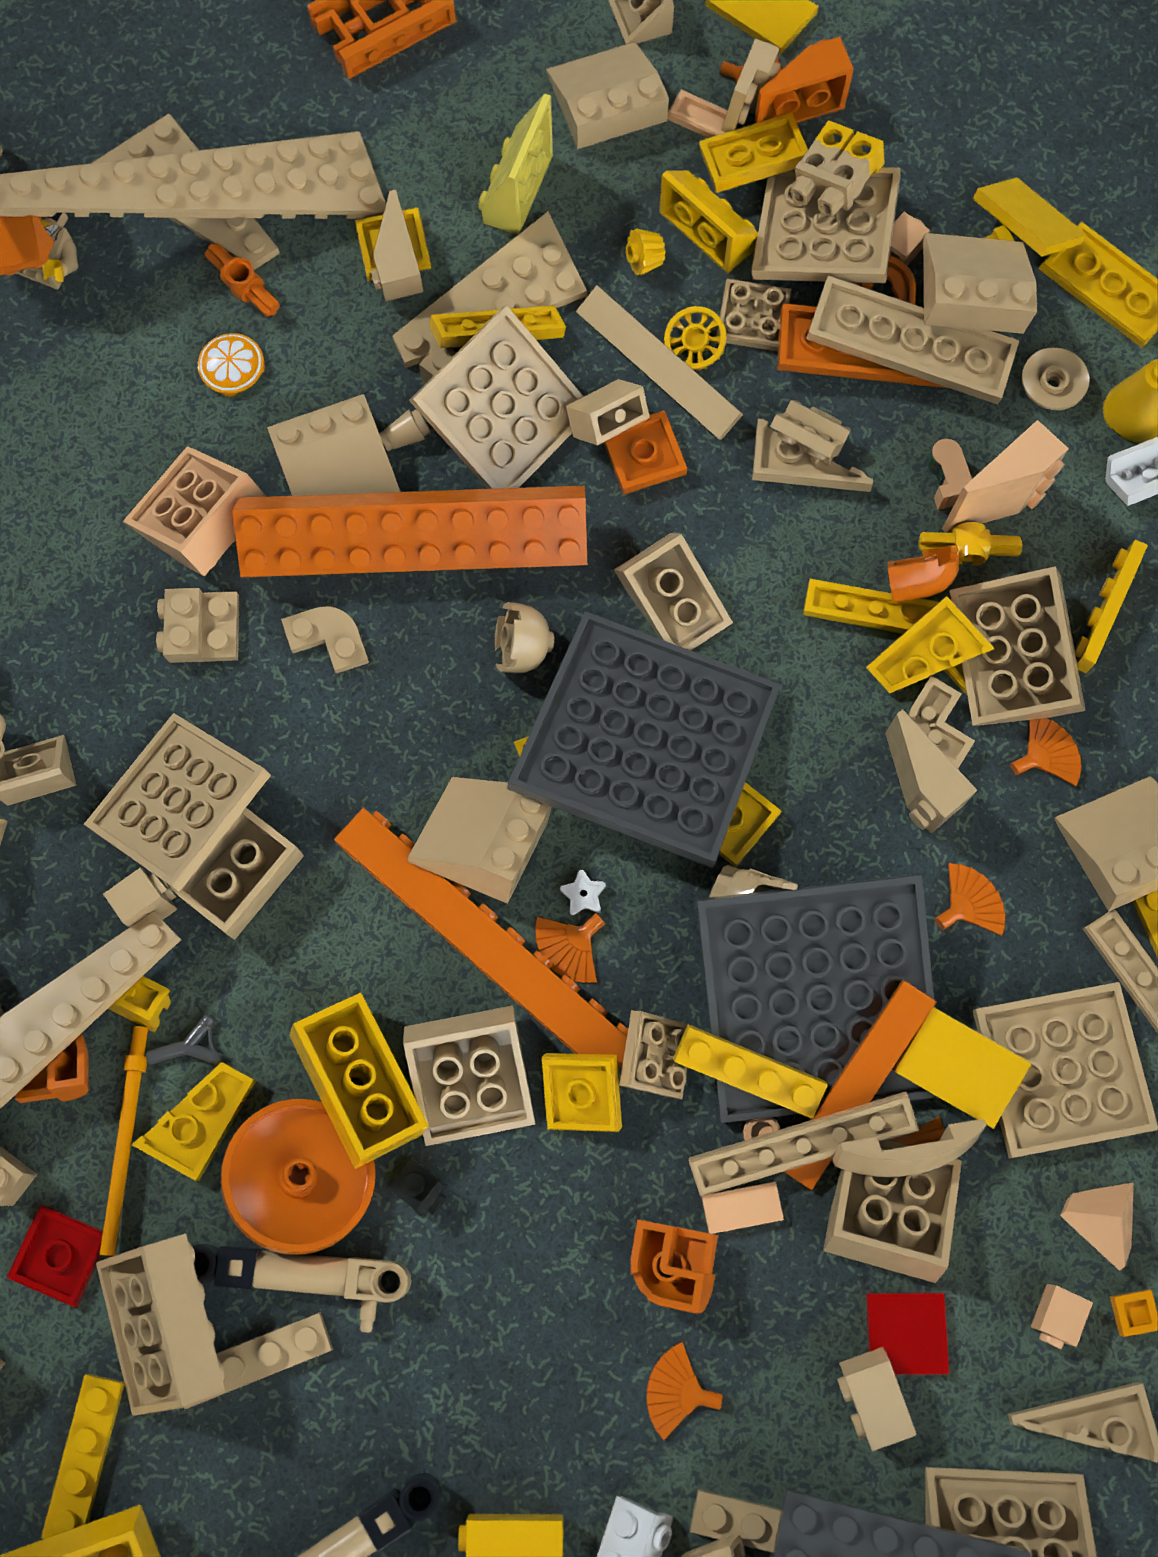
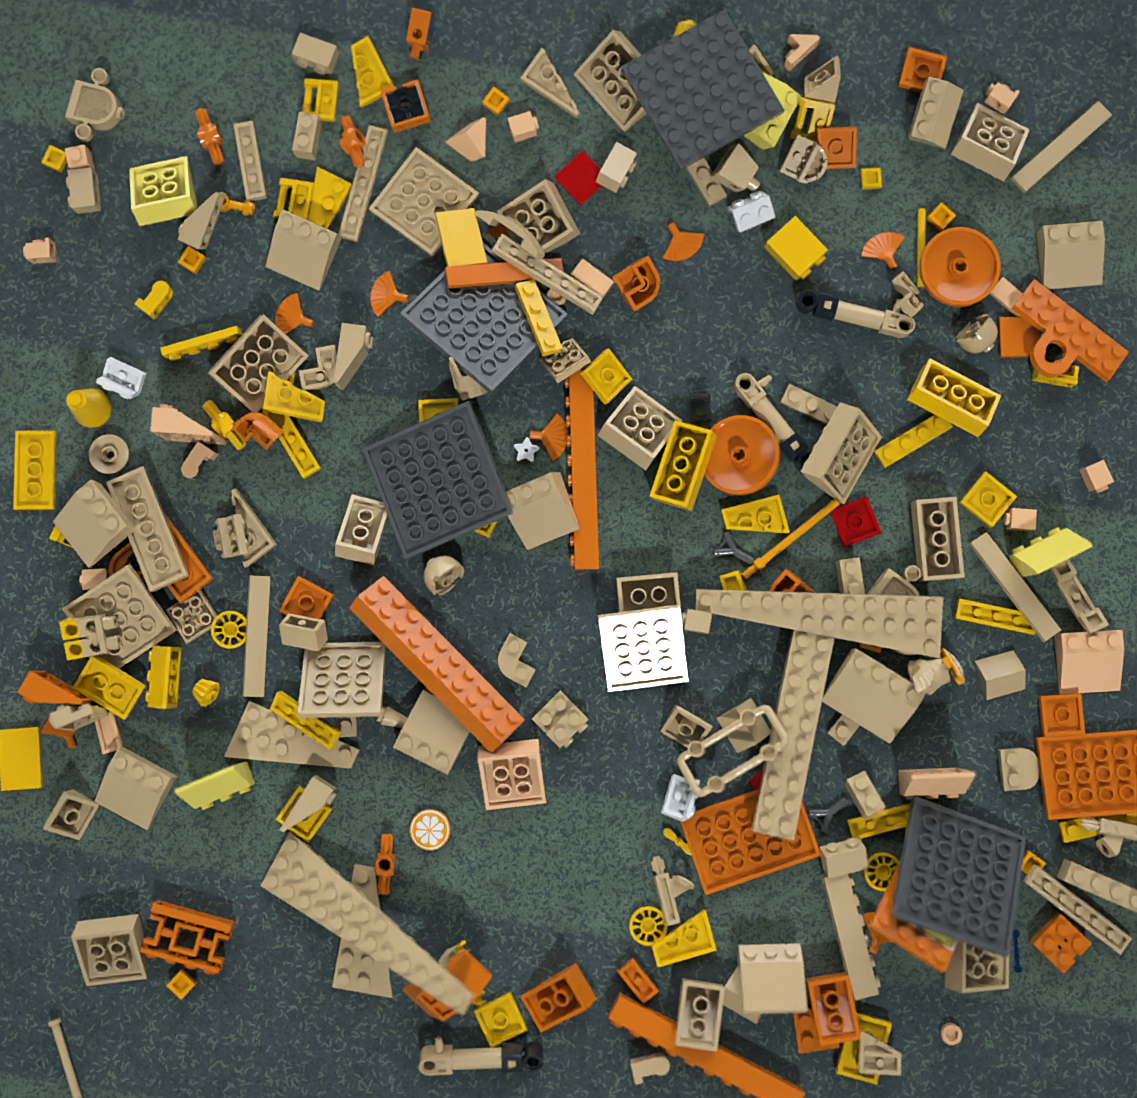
camera: 130 degrees left, 10 degrees up
(1029, 216) = (34, 531): yellow tile -> none

